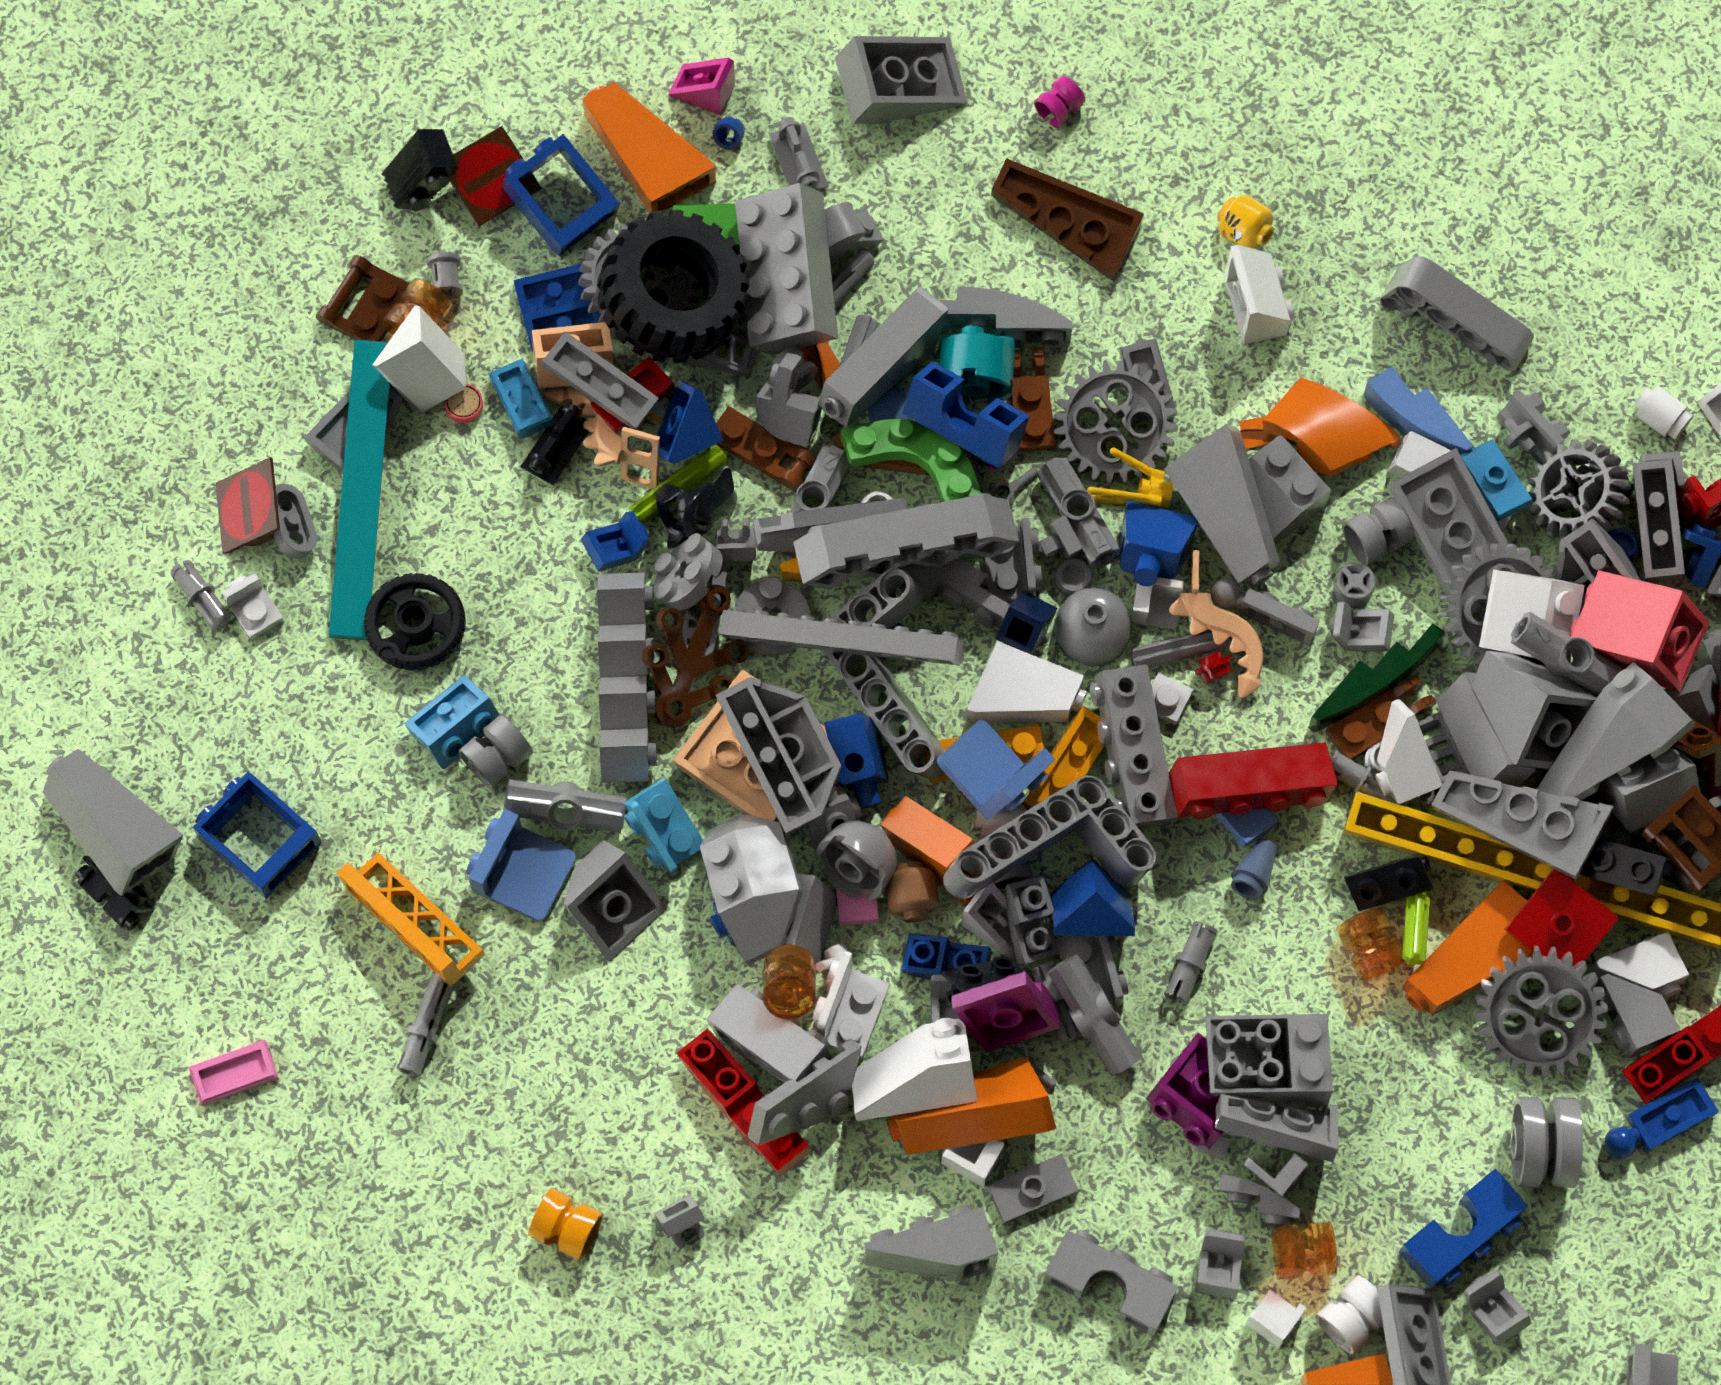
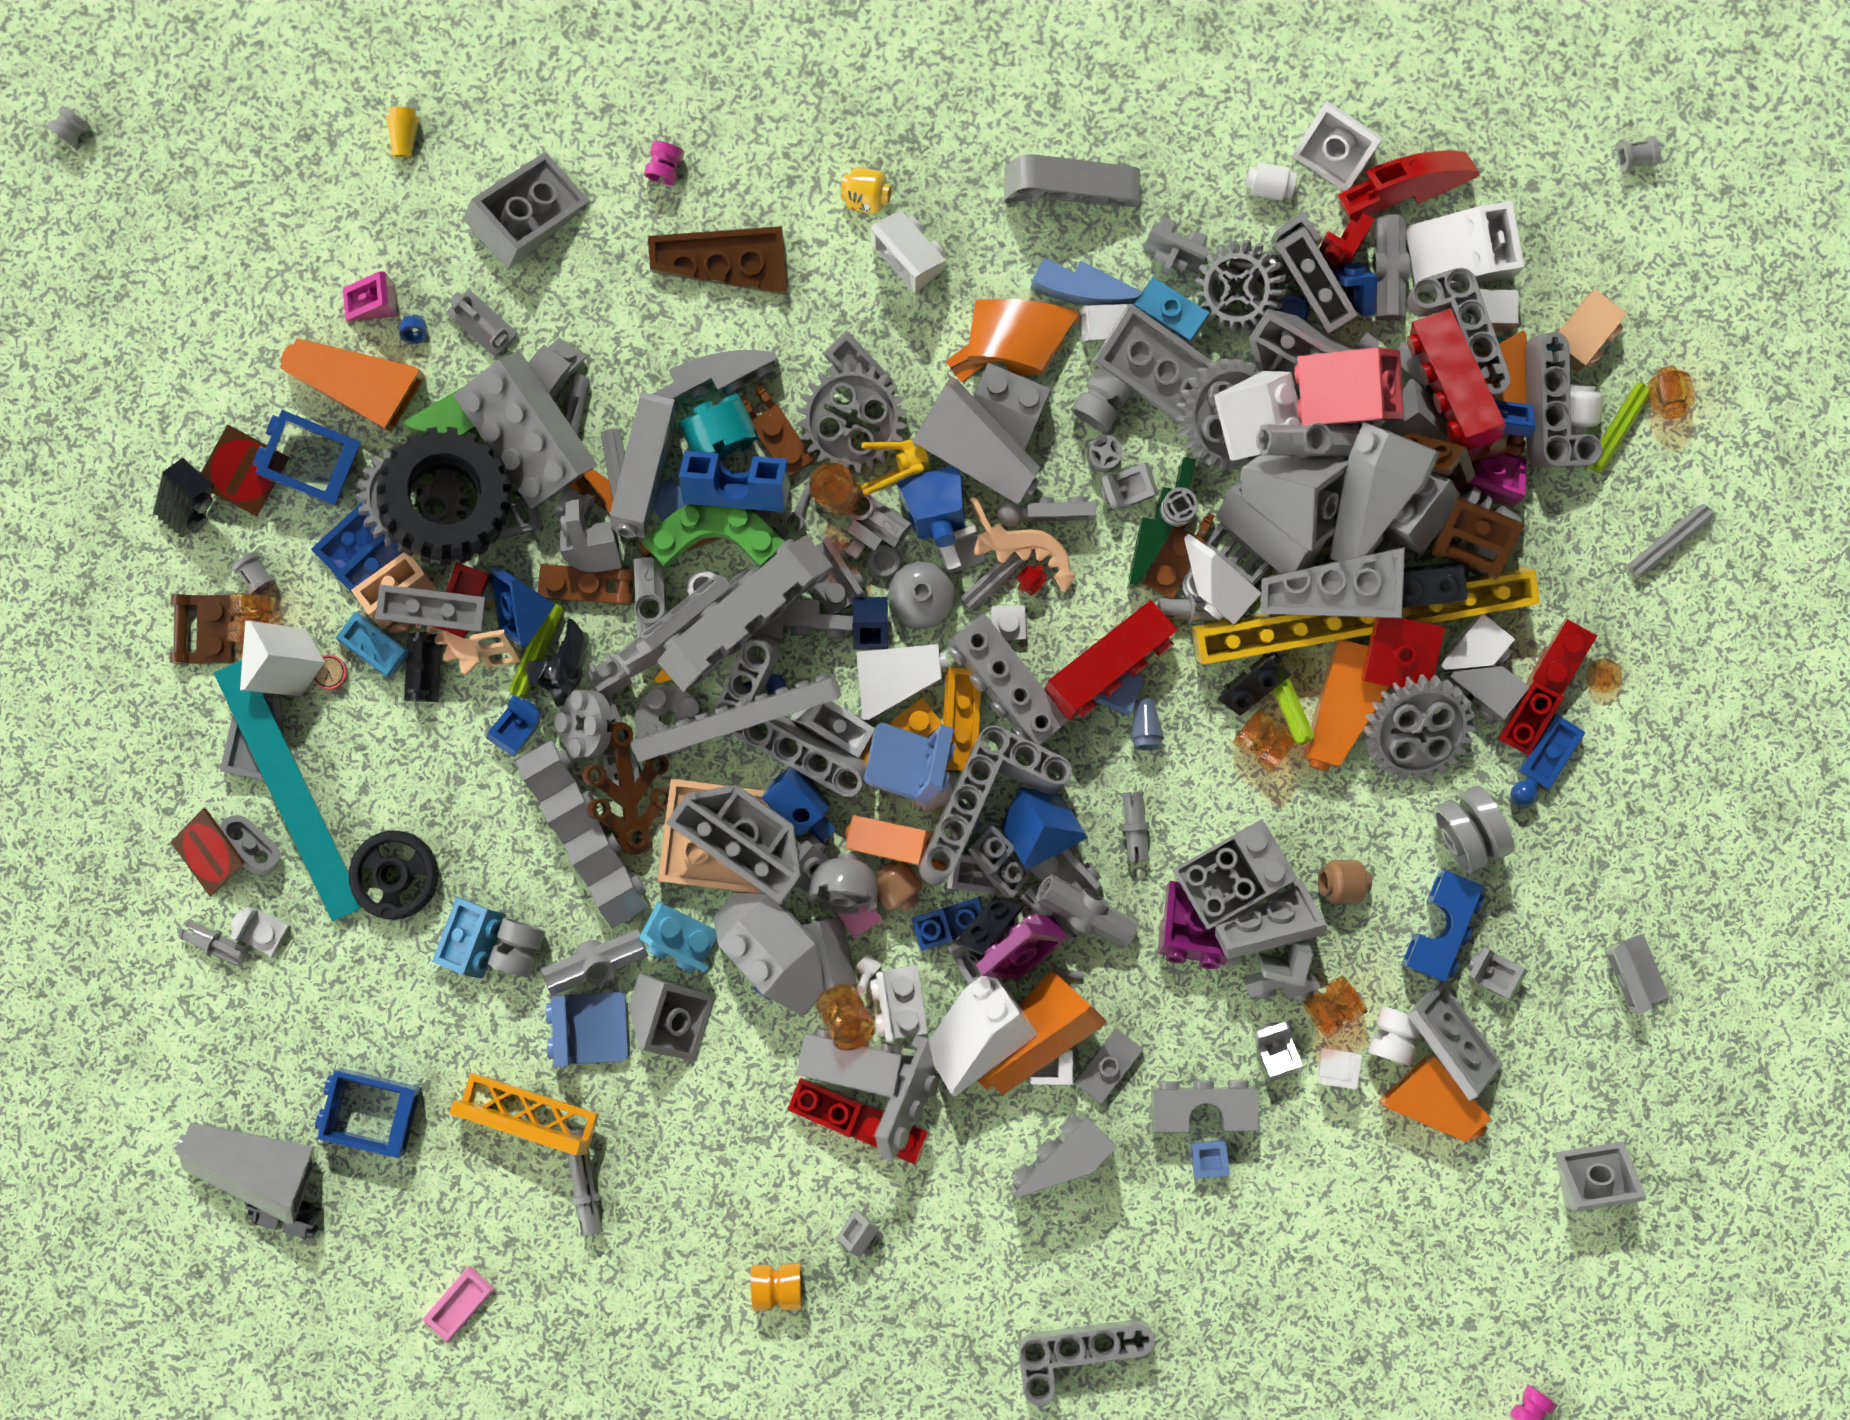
camera: 30 degrees left, 15 degrees up
(935, 699) = (836, 726): none -> white slope
(1062, 472) = (835, 489): none -> clear orange wheel
(1088, 1339) = (1209, 1159): none -> medium blue plate
(1381, 1130) = (1344, 882): none -> medium nougat head
(1397, 671) = (1175, 512): none -> light grey wheel

